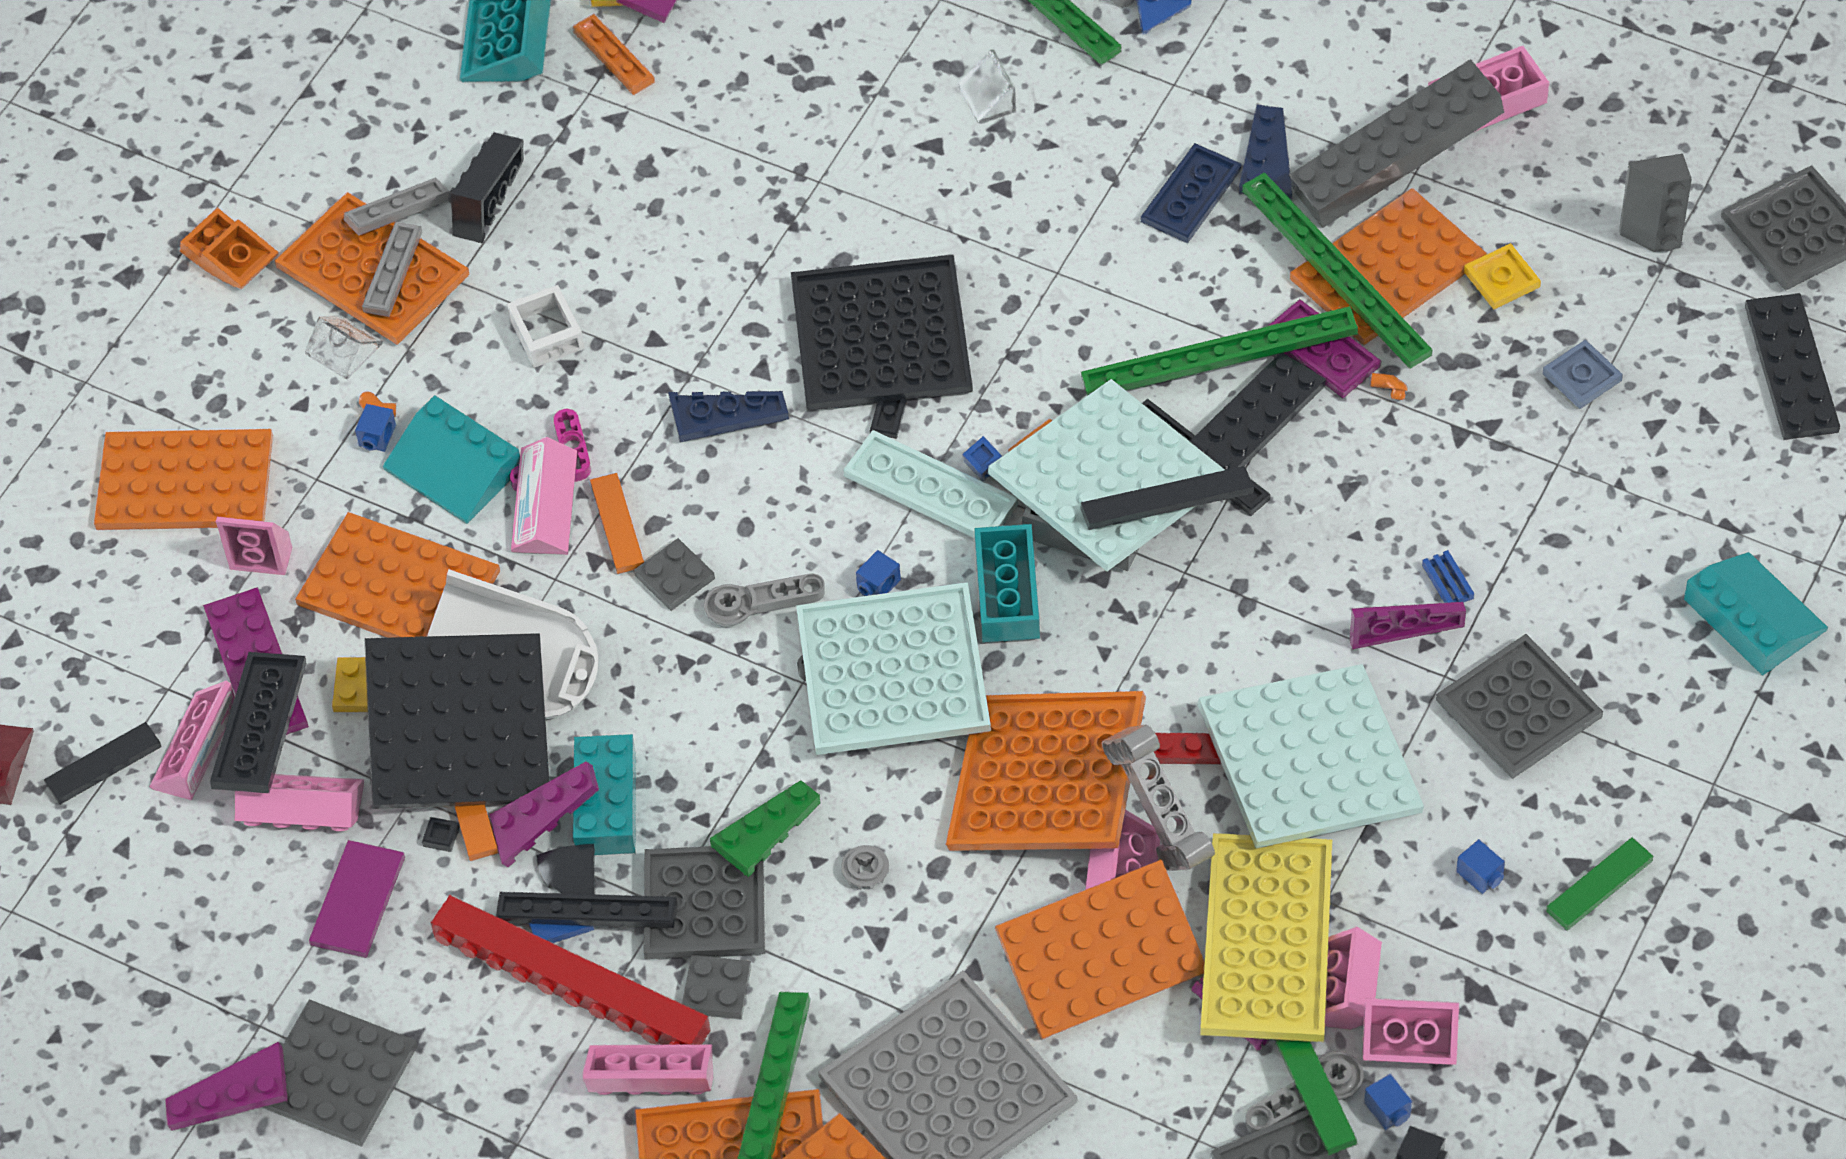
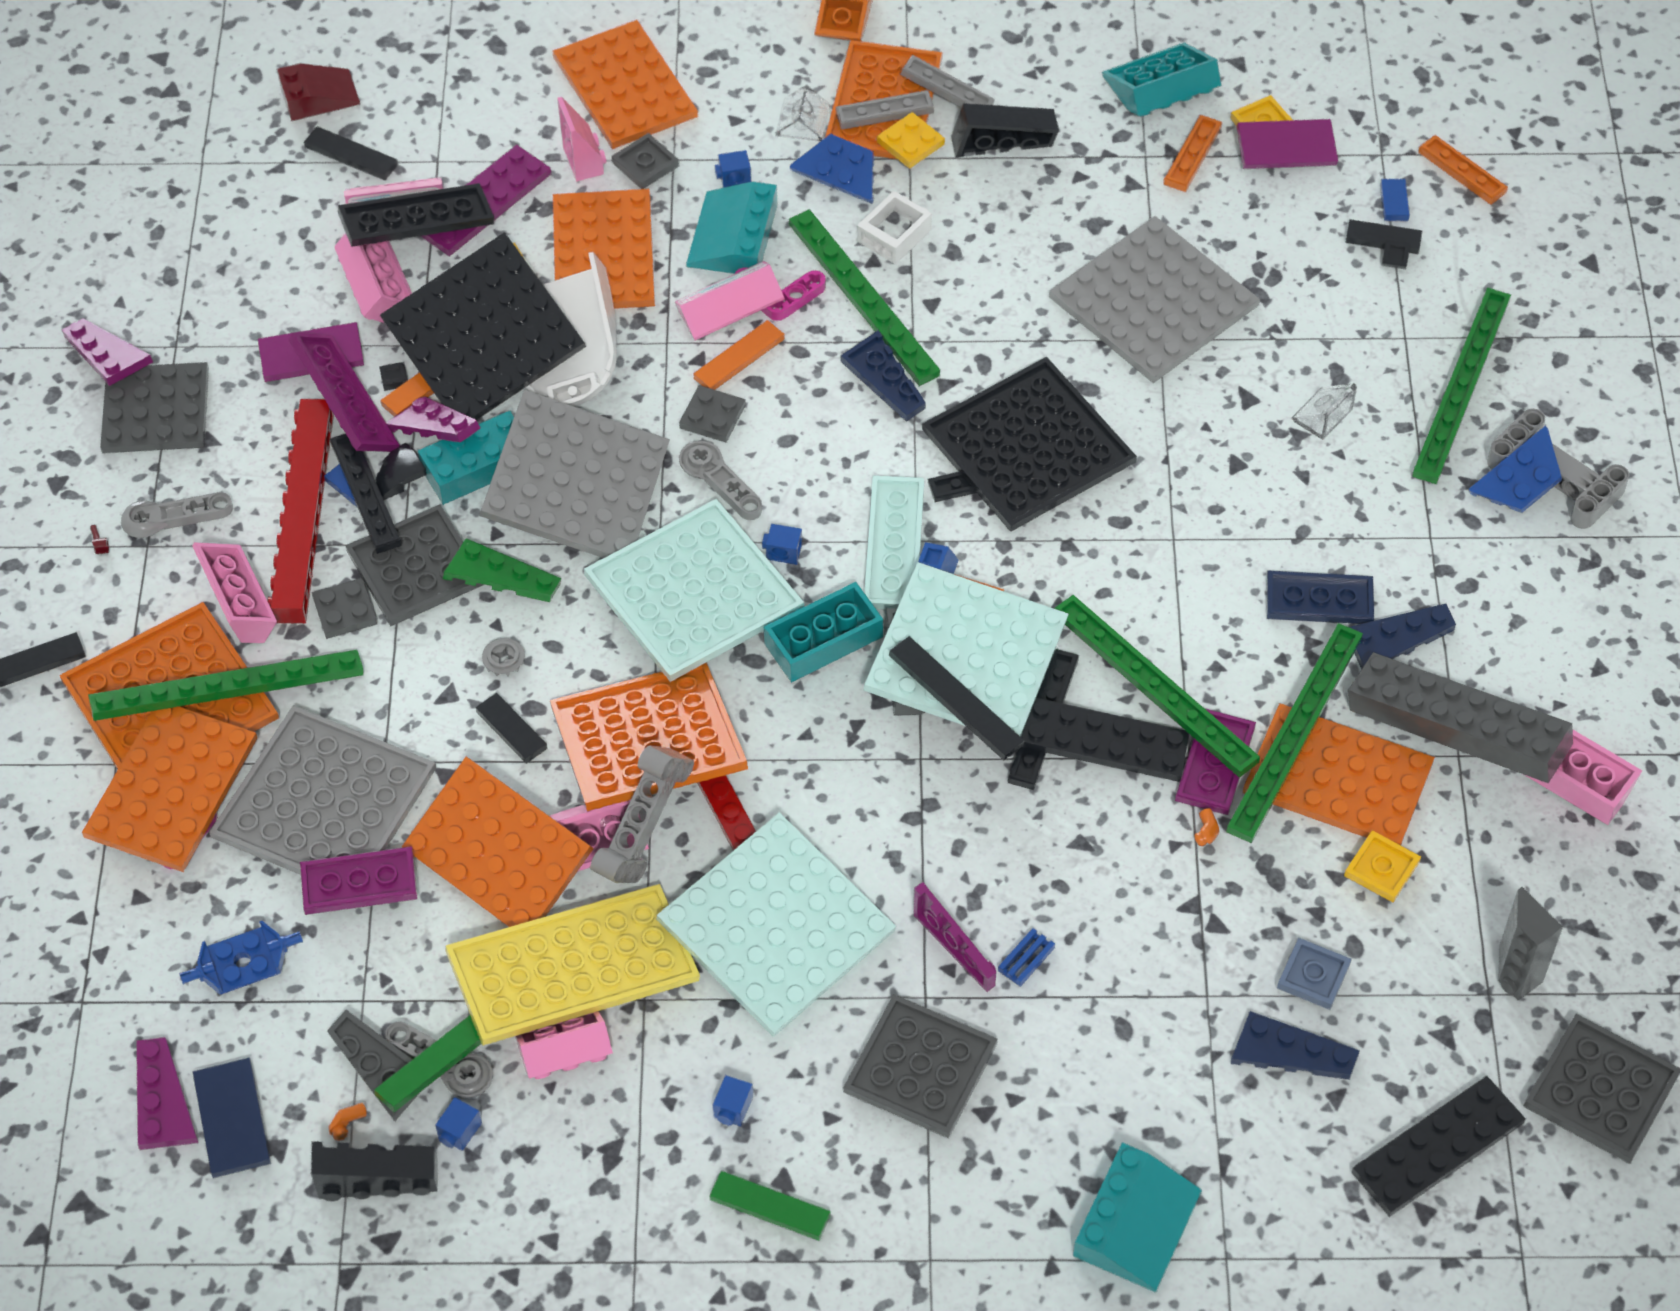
camera: 60 degrees right, 0 degrees up
(308, 500) = (645, 161): none -> dark grey plate
(370, 398) = (755, 158): orange arm -> none
(436, 338) = (839, 166): none -> blue wing
(442, 879) = (343, 392): none -> magenta plate
(448, 264) = (910, 140): none -> yellow plate
(493, 1105) = (172, 514): none -> light grey beam
(607, 389) = (864, 297): none -> green plate
(692, 715) = (574, 476): none -> light grey plate
(769, 162) = (1154, 298): none -> light grey plate
(954, 892) = (511, 728): none -> black tile
(1068, 1085) = (358, 880): none -> magenta tile
(1410, 1031) = (522, 1110): bright pink slope -> none
(1639, 431) = (1284, 1046): none -> dark blue wing

